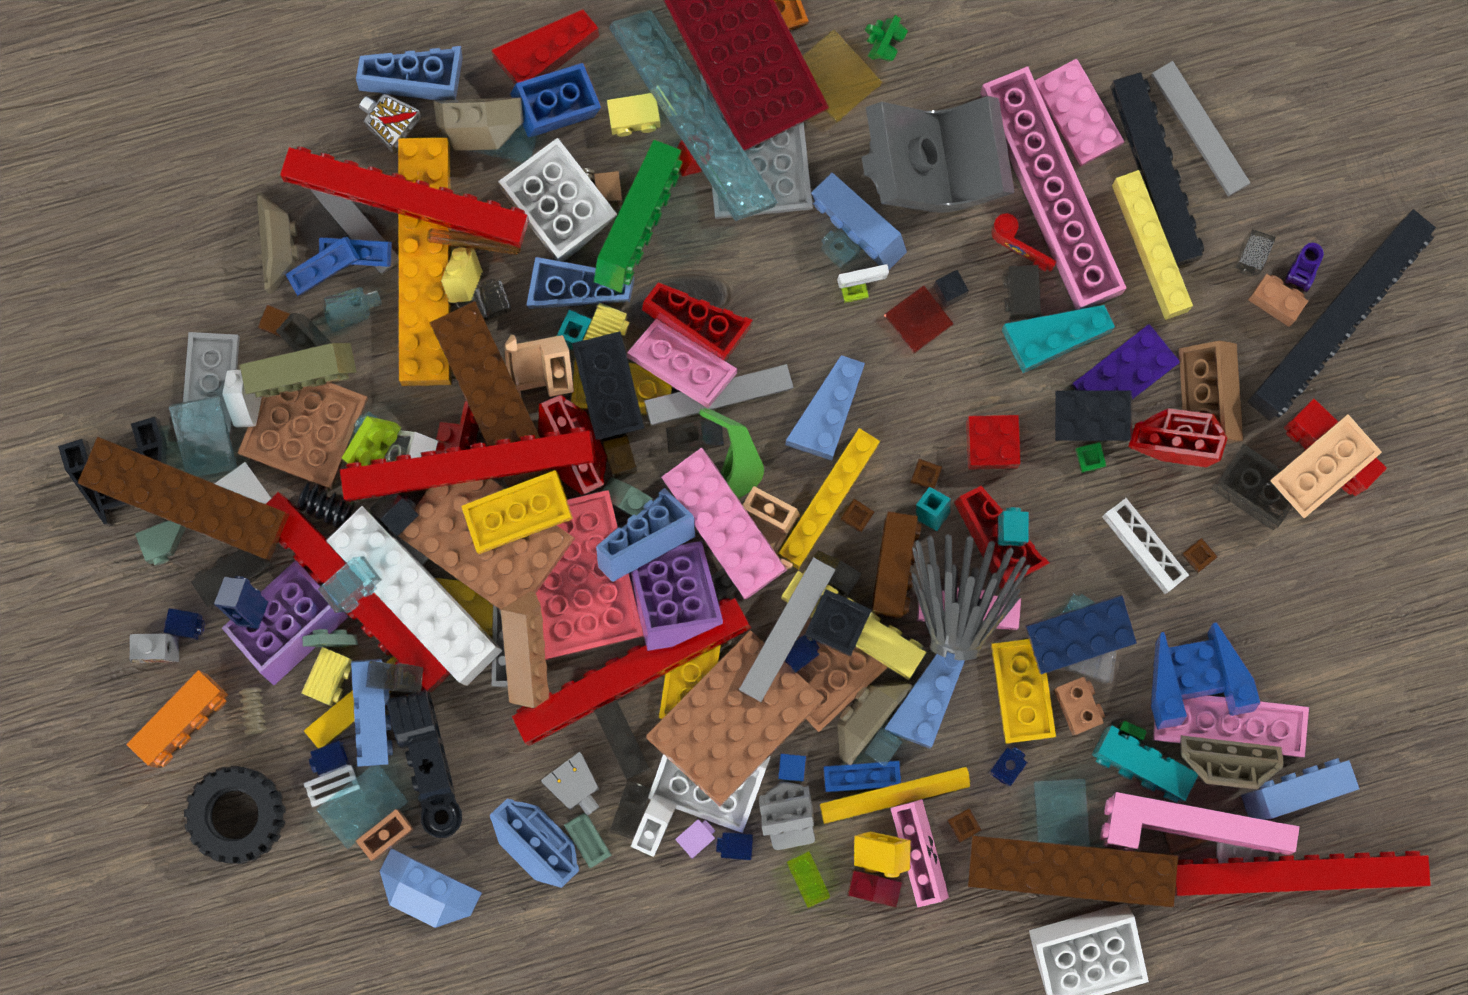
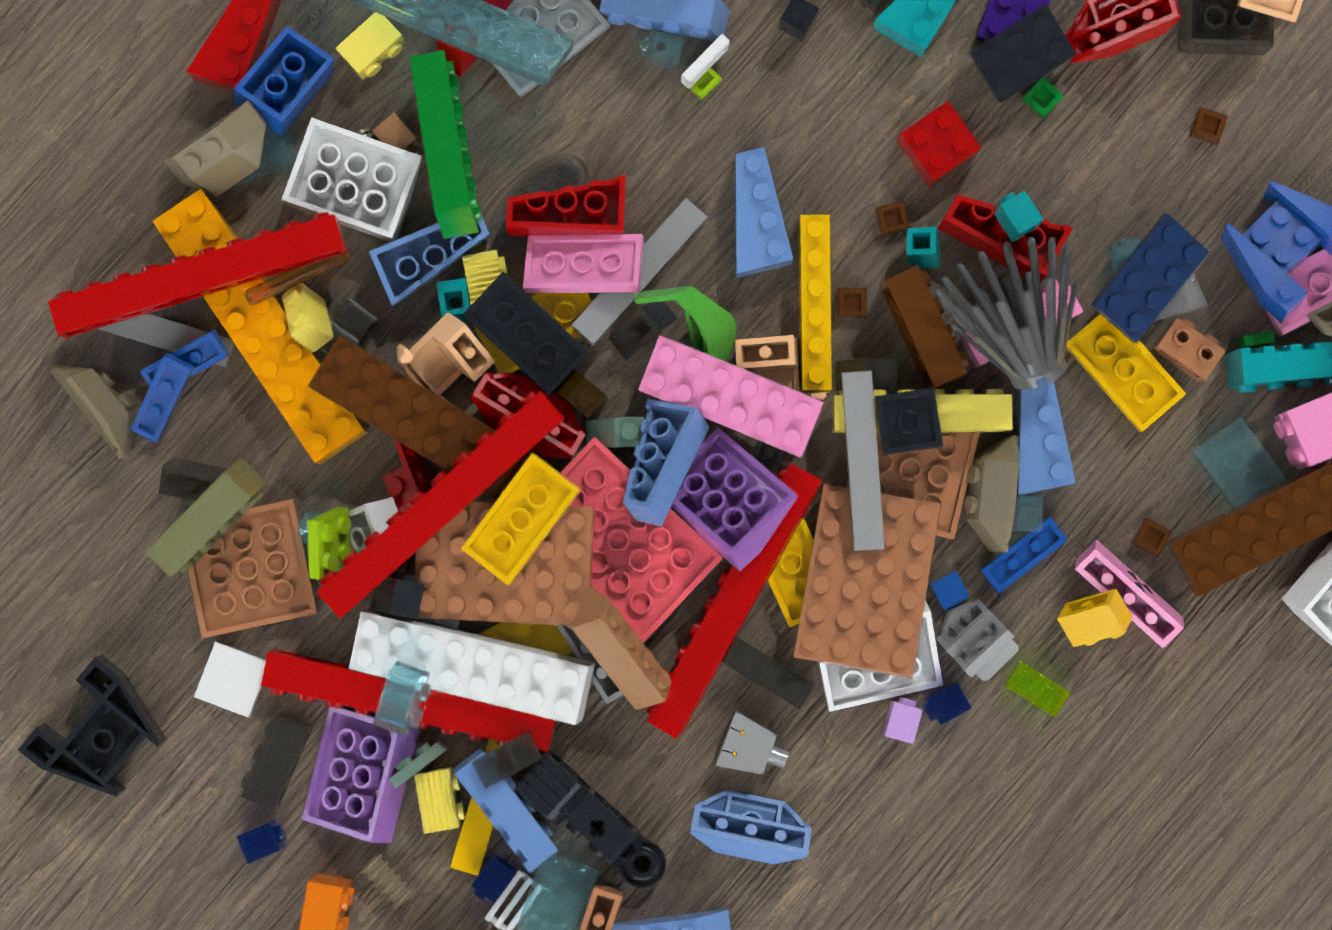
camera: 30 degrees left, 5 degrees up
(153, 648) = (248, 884): light grey torso -> none
(160, 541) = (184, 773): sand green slope -> none
(183, 498) = (178, 721): reddish brown brick -> none
(203, 436) = (156, 645): clear light blue plate -> none
(206, 367) = (127, 586): light grey plate -> none
(241, 406) = (177, 592): white slope -> none
(241, 602) = (305, 784): dark blue brick -> none
(272, 320) = (147, 483): reddish brown tile -> none
(324, 505) = (323, 633): black piece -> none
(341, 313) = (211, 432): clear light blue torso -> none
(389, 119) = (130, 207): torso -> none
(412, 74) = (122, 147): medium blue wedge -> none
(587, 840) = (797, 790): sand green tile -> none
(630, 809) = (820, 734): clear smoke slope -> none
(653, 825) = (853, 734): white slope -> none
(802, 653) = (891, 474): clear blue brick -> none
(874, 889) = (1104, 657): dark red slope -> none
(895, 795) = (1067, 552): yellow tile -> none
(918, 319) = (785, 69): clear red tile -> none
(1000, 770) = (1150, 459): clear blue brick -> none
(1140, 549) = (1148, 157): white fence -> none

